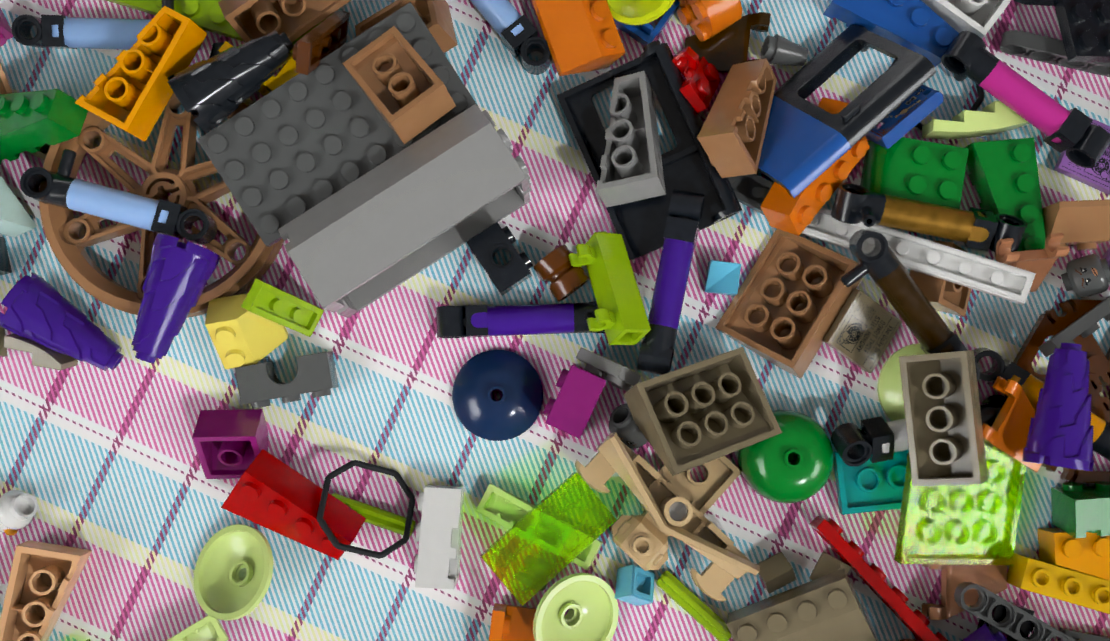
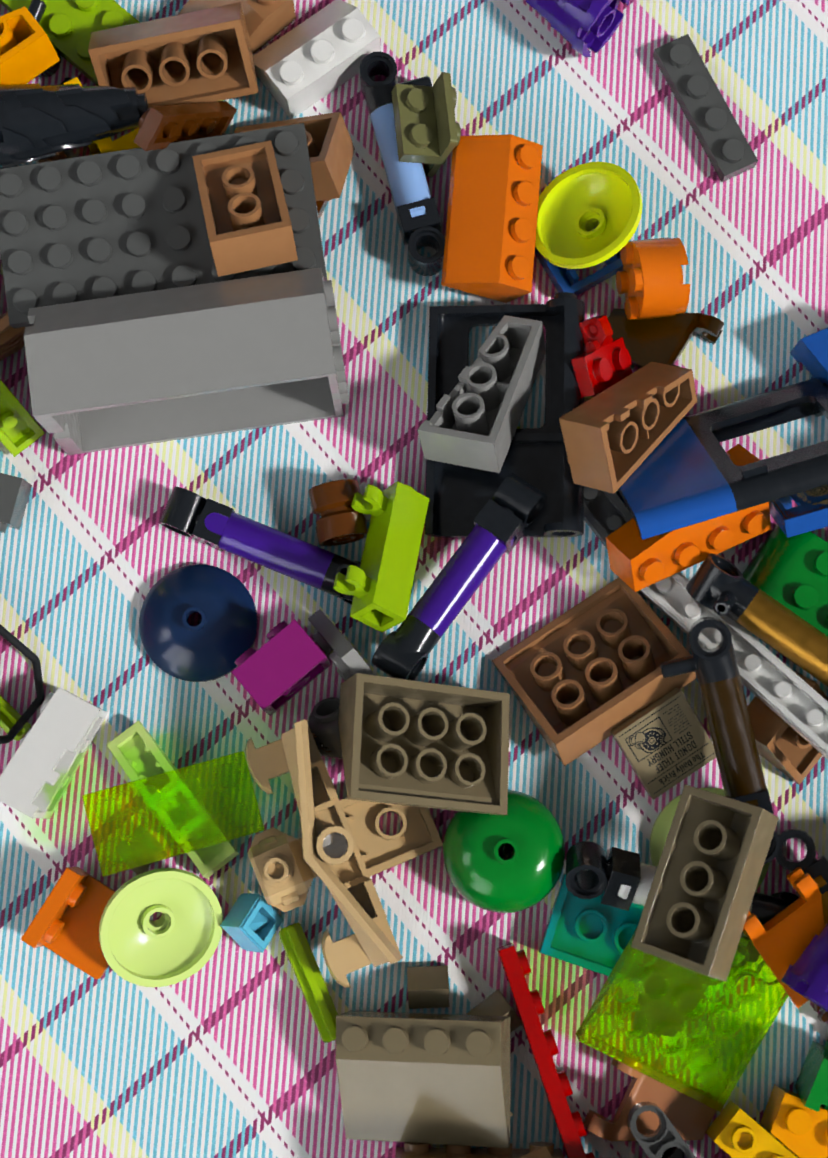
camera: 25 degrees right, 5 degrees down
(487, 245) = (263, 444): black brick -> none
(722, 278) = (526, 605): medium azure slope -> none
(783, 51) = (720, 374): dark grey cone -> none

